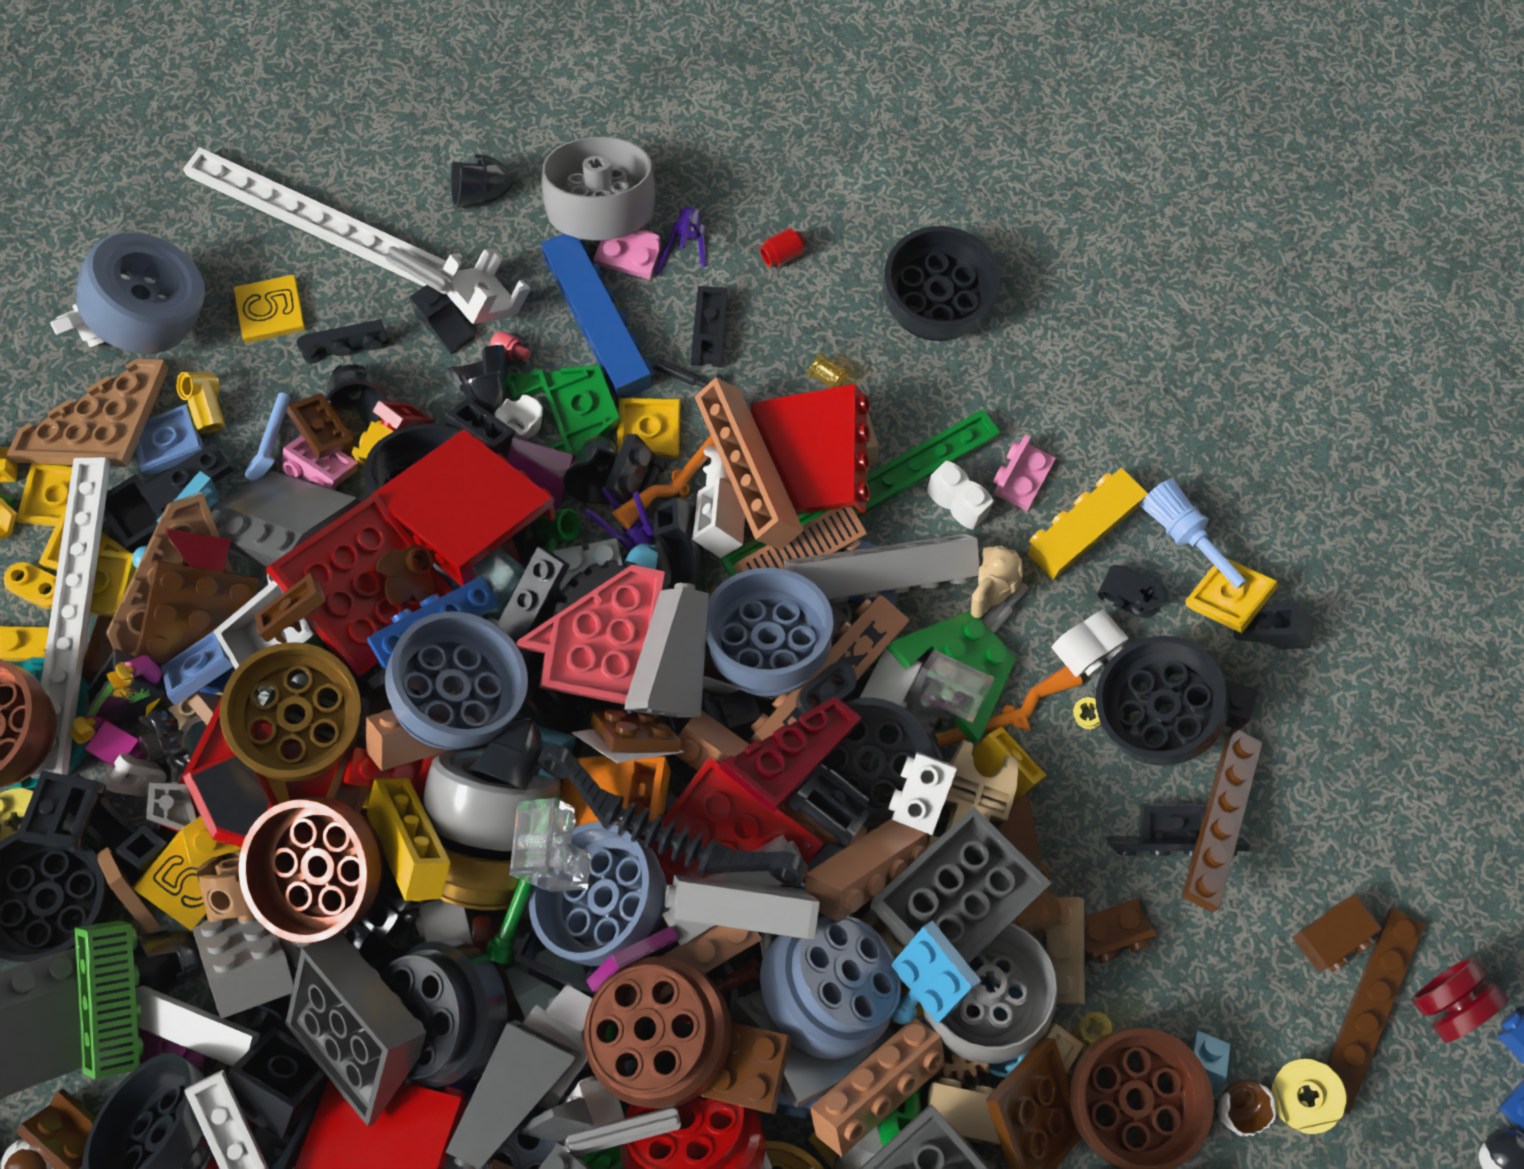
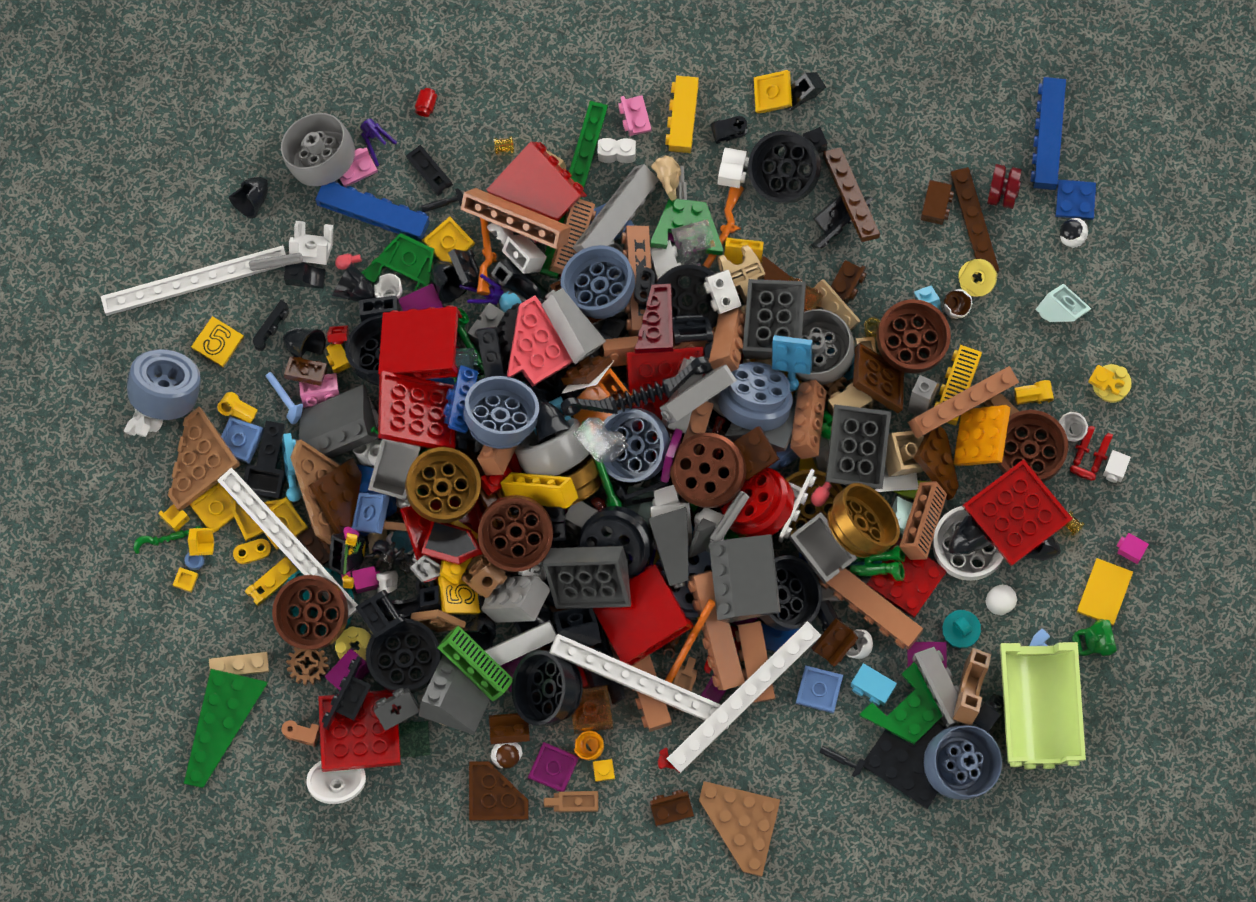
camera: 35 degrees left, 5 degrees up
(200, 549) = (322, 464): dark red tile -> none
(289, 608) = (406, 442): reddish brown plate -> none
(404, 577) = (429, 391): reddish brown plate -> none
(958, 256) = (510, 36): black wheel -> none
(1078, 714) = (762, 204): light yellow bush -> none
(1187, 525) = (727, 77): light blue piece -> none

